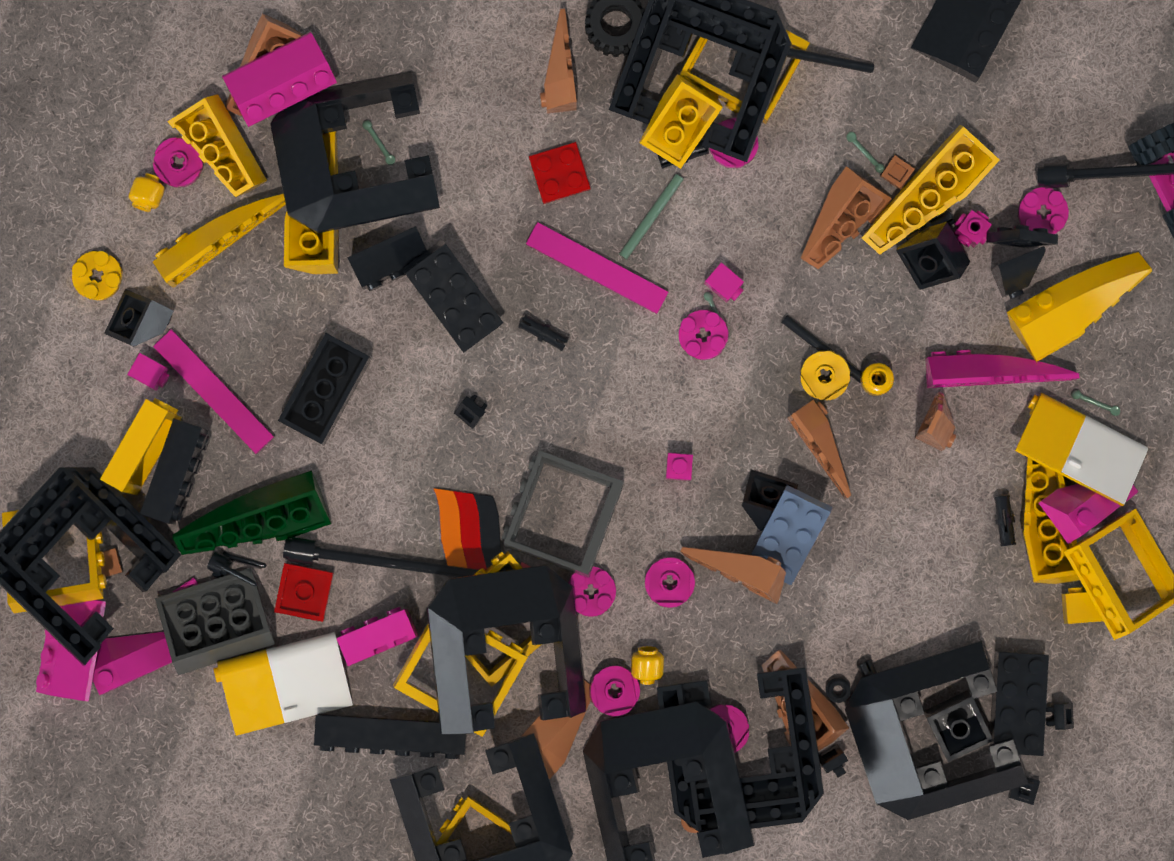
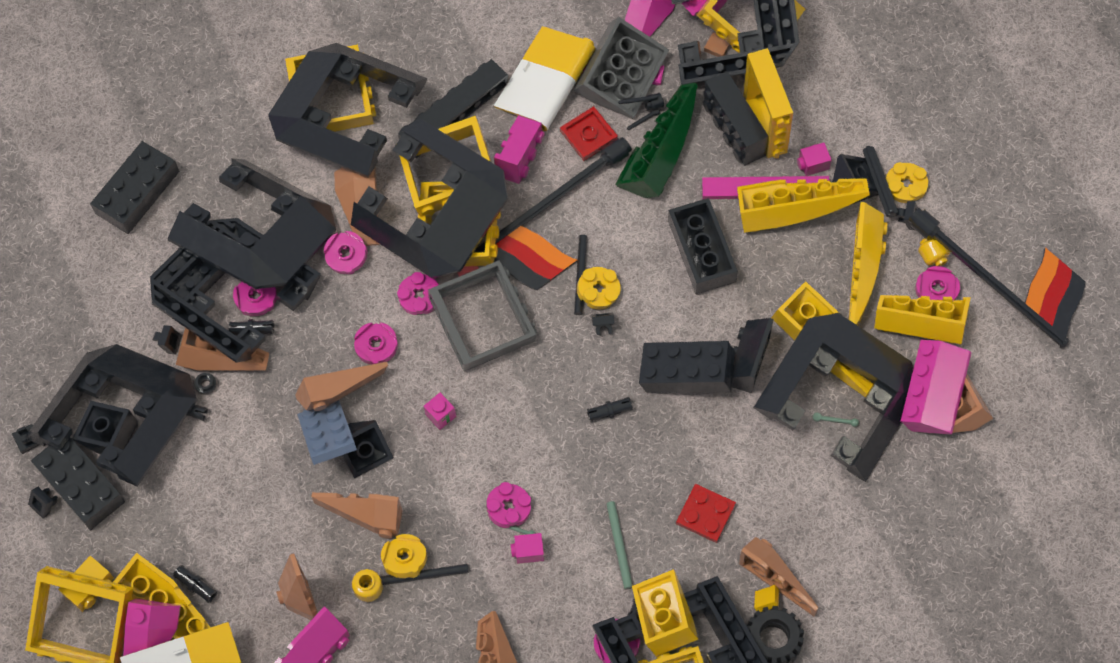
camera: 140 degrees right, 20 degrees down
(99, 62) = (1050, 296): none -> flag
(118, 297) = (880, 181): none -> black axle
(129, 242) = (904, 214): none -> black tile
(213, 350) = (784, 204): none -> yellow wedge
(442, 429) = (607, 279): none -> yellow plate
(444, 472) = (581, 265): none -> black bar
(588, 58) = (766, 597): none -> yellow tile
(597, 268) = (618, 480): dark pink tile -> none
(647, 665) = (340, 284): yellow head -> none
(754, 702) = (262, 326): none -> black pin

